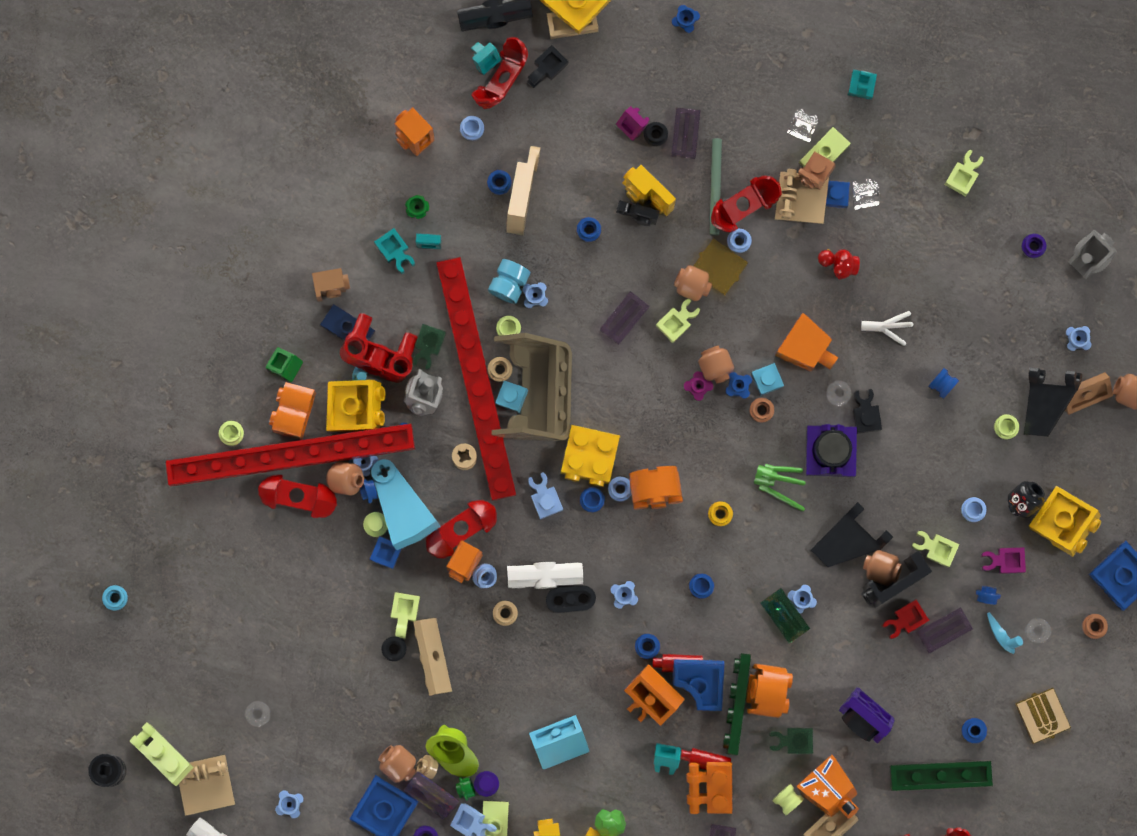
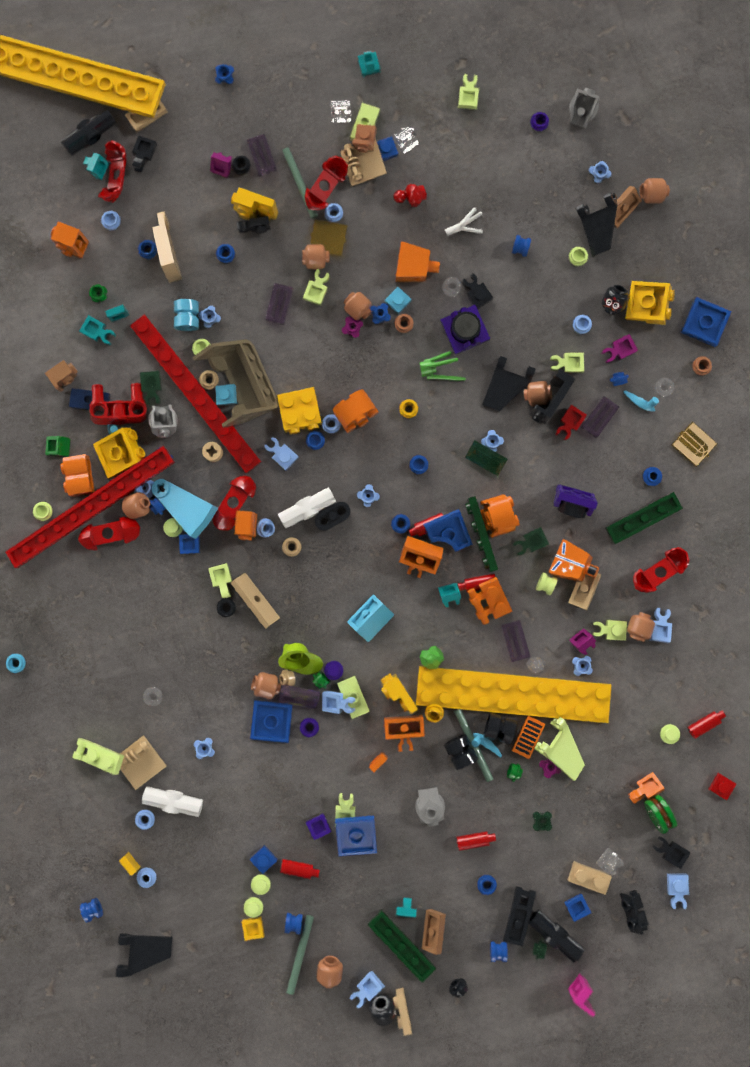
camera: 15 degrees left, 5 degrees up
(107, 770) = (65, 785): black wheel -> none

